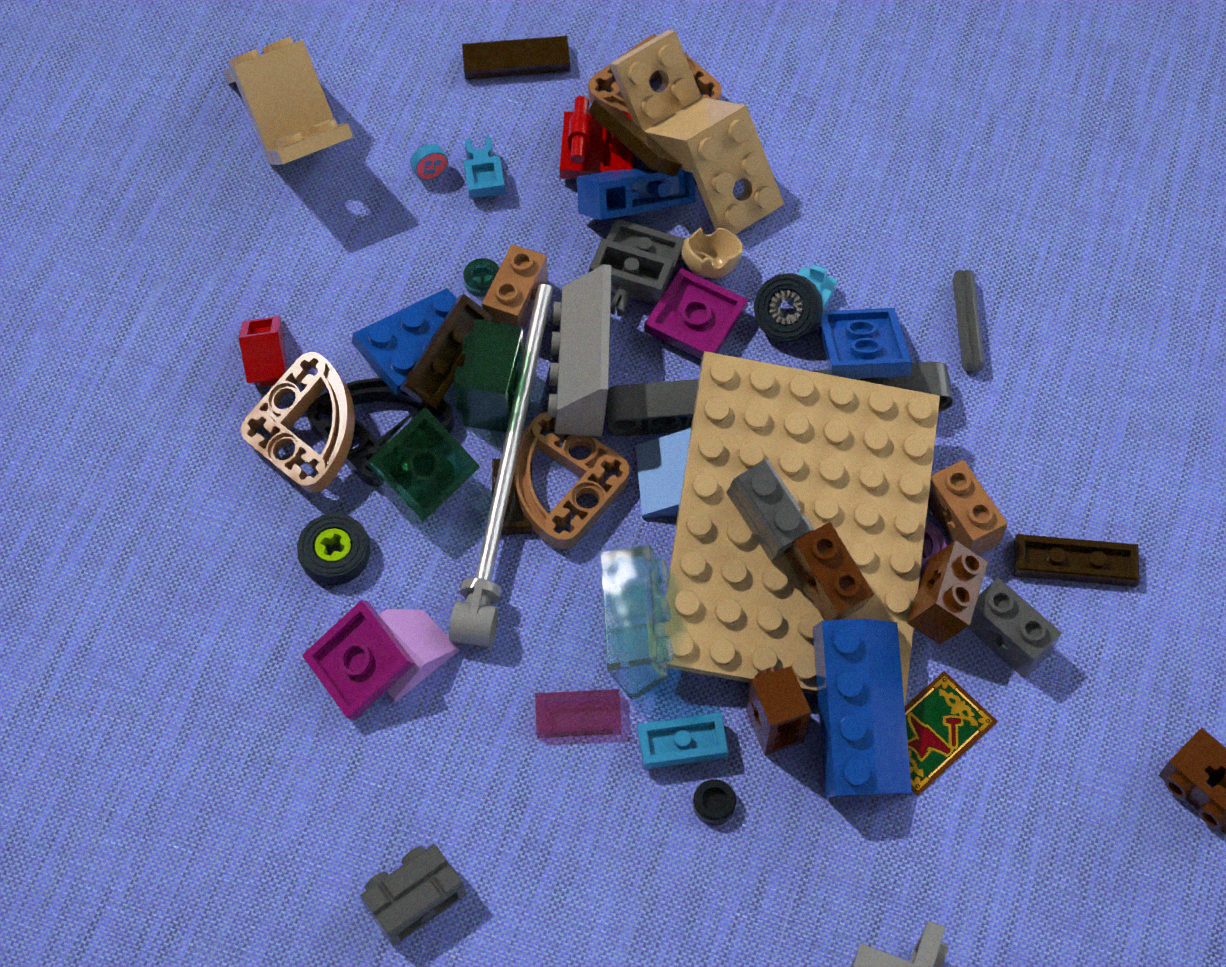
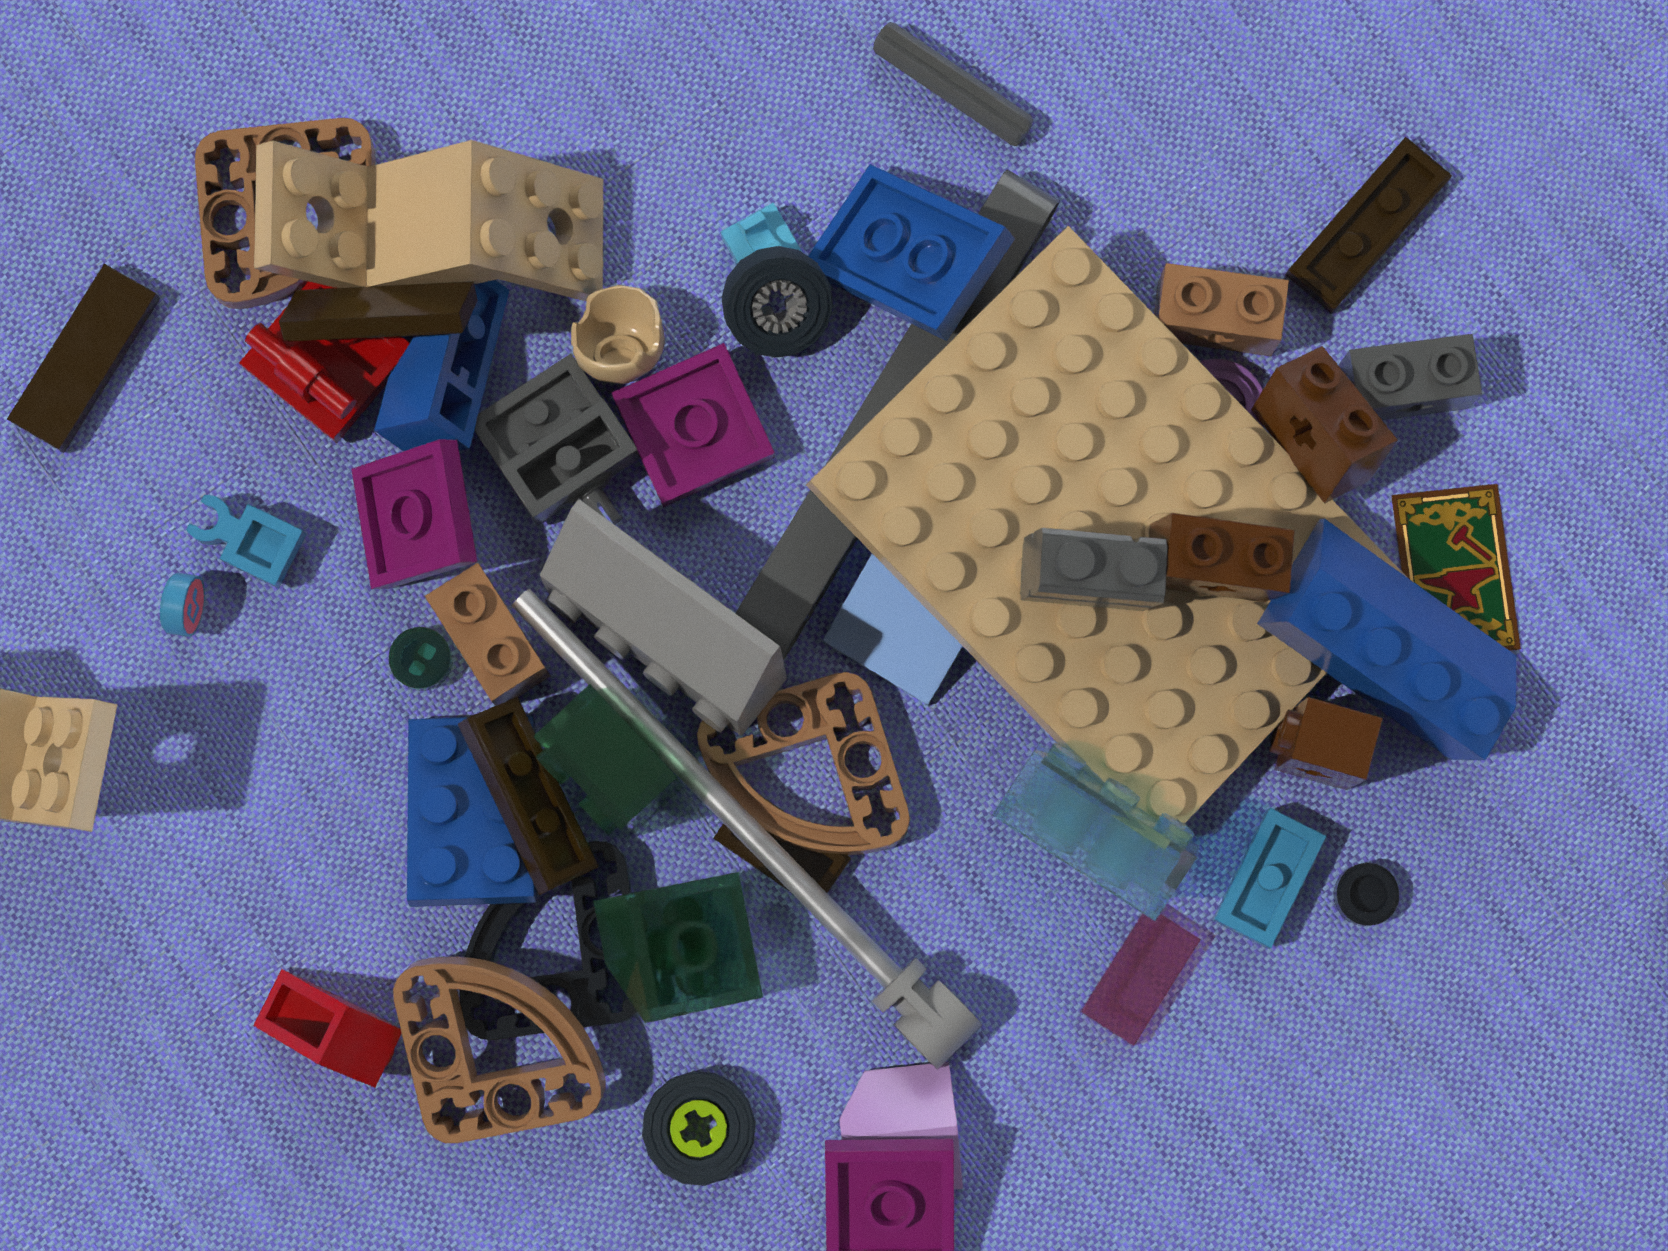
camera: 55 degrees left, 20 degrees up
(550, 221) = (414, 514): none -> magenta plate

